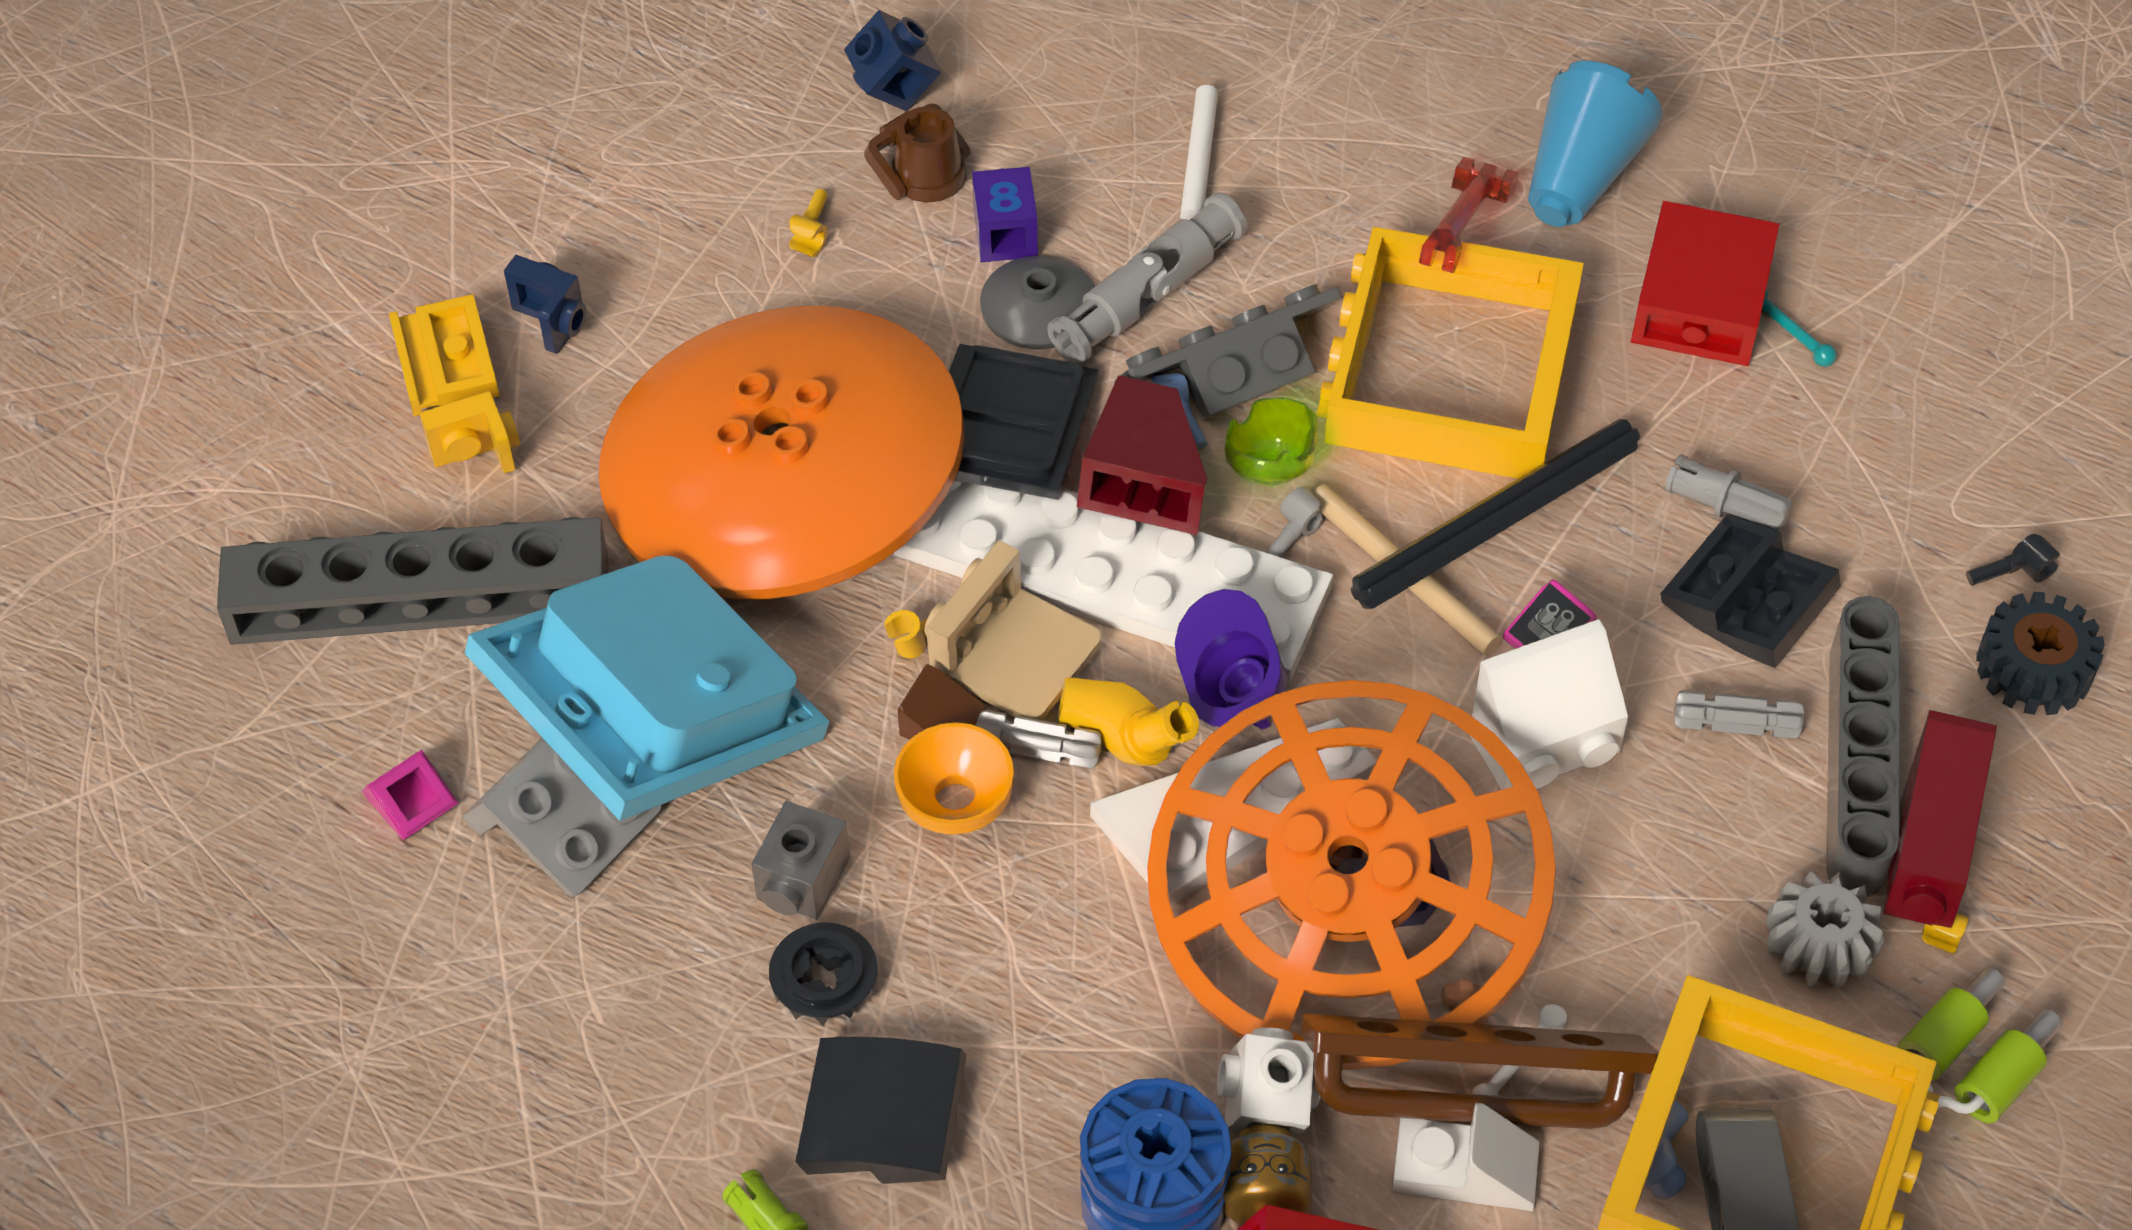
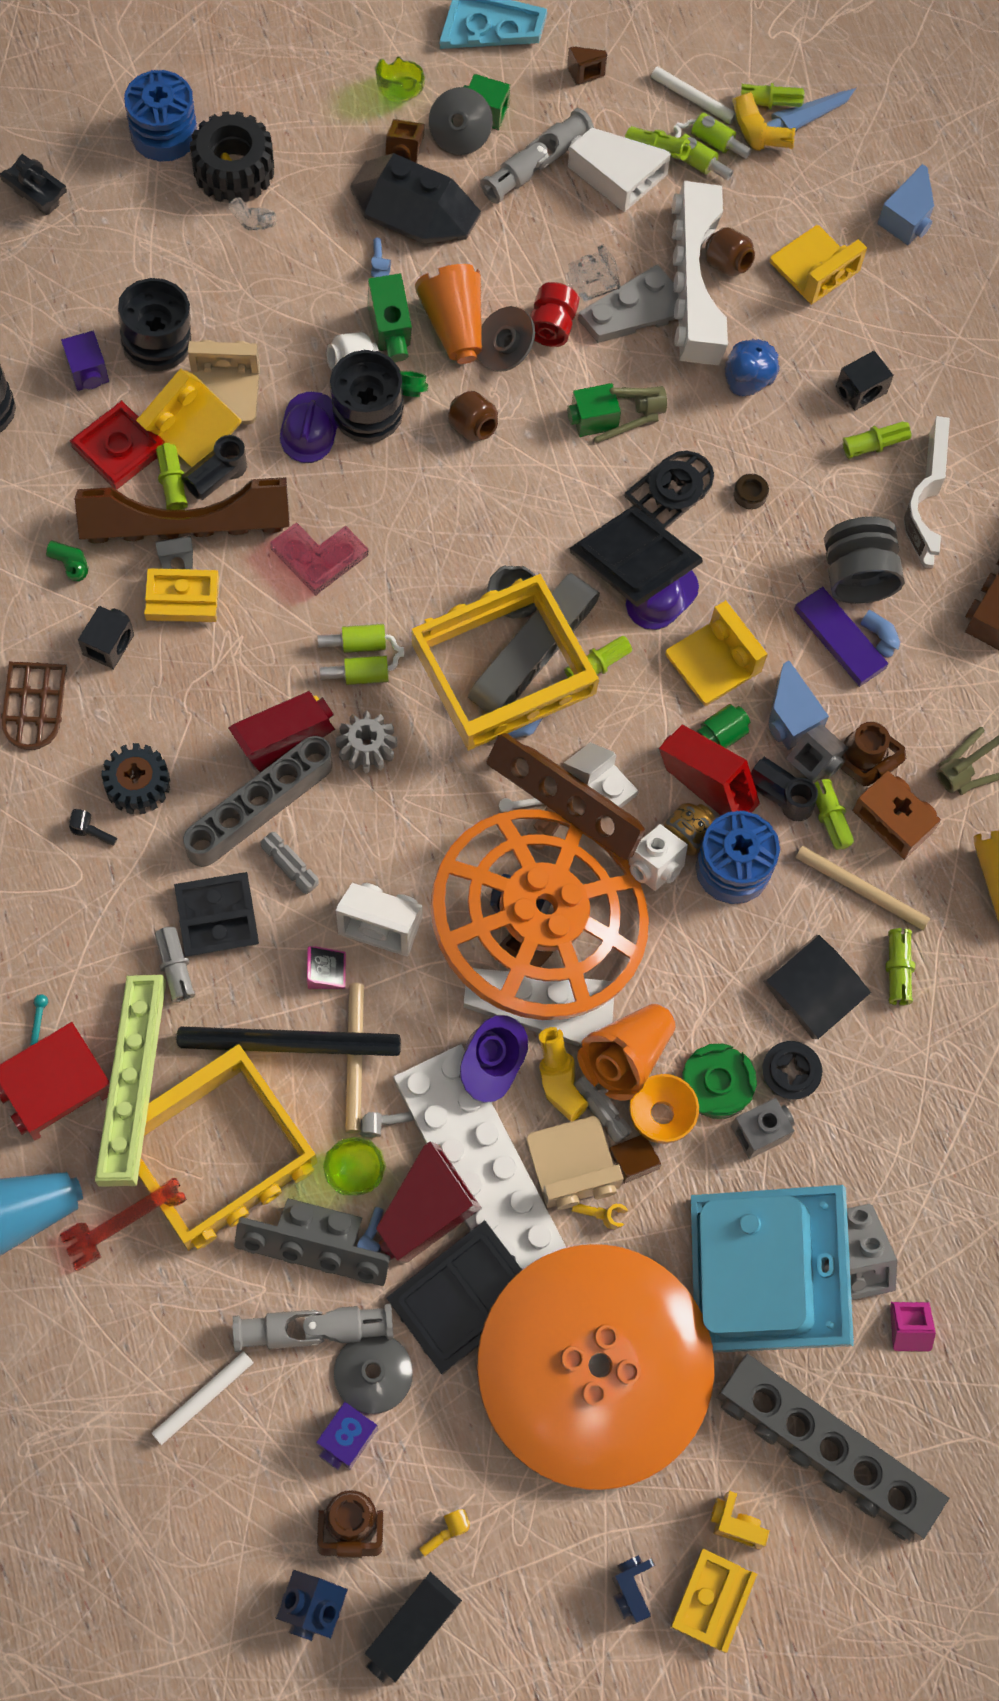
camera: 145 degrees left, 15 degrees up
(763, 117) = (411, 1629): none -> black slope
(914, 890) = (721, 1080): none -> green tile
(1065, 801) = (626, 1051): none -> orange cone
(1624, 329) = (130, 1081): none -> yellowish green tile

